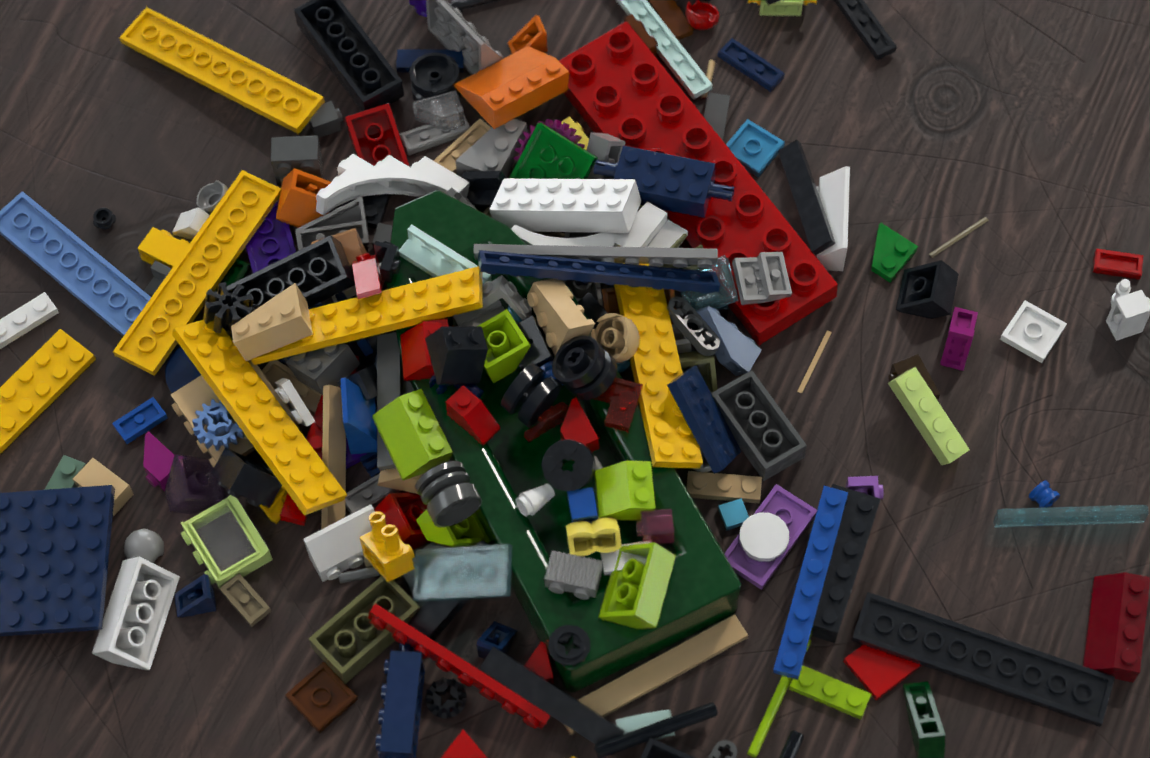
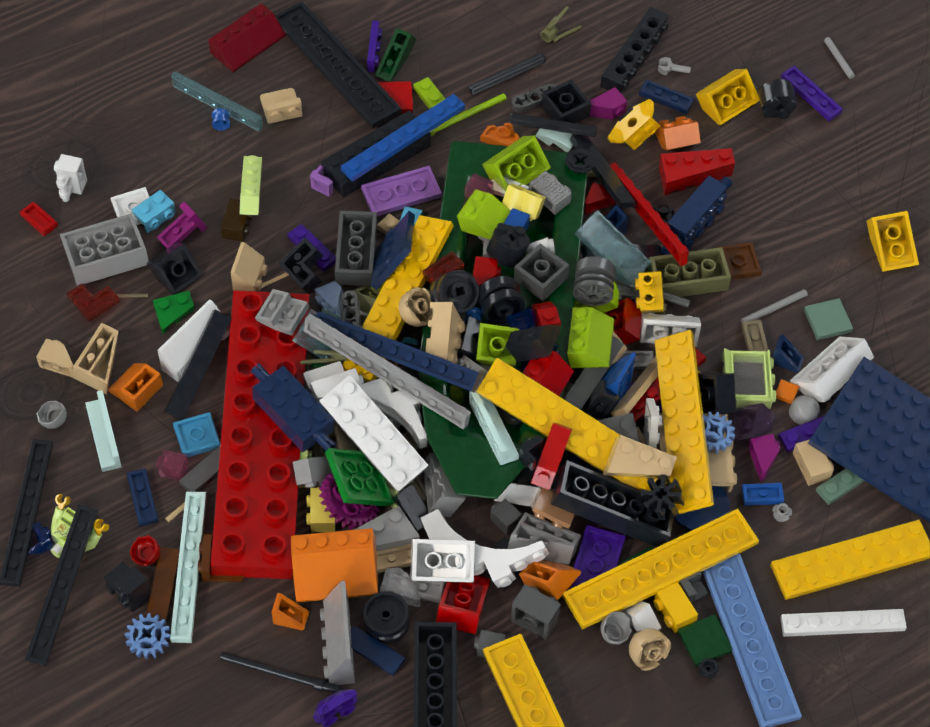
camera: 150 degrees left, 5 degrees down
(108, 420) = (782, 517): none -> light grey plate
(119, 243) = (705, 640): none -> dark green tile
(129, 519) = (798, 434): none -> dark purple plate
(172, 196) = (648, 648): none -> tan cylinder
(173, 683) = (828, 319): none -> sand green tile
(176, 558) = (786, 391): none -> orange tile
(245, 660) = (773, 307): none -> light grey bar
(418, 143) = (442, 560): none -> white slope
(493, 394) = (522, 320): none -> clear blue plate
(510, 458) = (541, 272): none -> dark grey brick
(709, 683) = (499, 135): none -> orange plate
(747, 101) = (172, 465): none -> clear pink brick
(764, 537) = (406, 185): white tile -> none
(794, 362) = (299, 264): none -> black brick
(811, 409) = (300, 233): none -> dark purple plate
(839, 95) = (103, 433): none -> light aqua fence
(847, 326) = (248, 269): none -> tan slope
(851, 147) = (137, 385): none -> orange slope
(901, 77) = (51, 414): none -> light grey hair
(907, 148) = (97, 359): none -> tan wedge
(950, 131) = (55, 358): none -> tan slope
(961, 716) = (374, 46): none -> dark purple plate
(974, 203) = (92, 305): none -> clear red plate
(995, 559) = (281, 105): none -> tan bracket
(1008, 336) = (154, 211): none -> medium azure bracket
(1015, 262) = (104, 249): none -> light grey slope

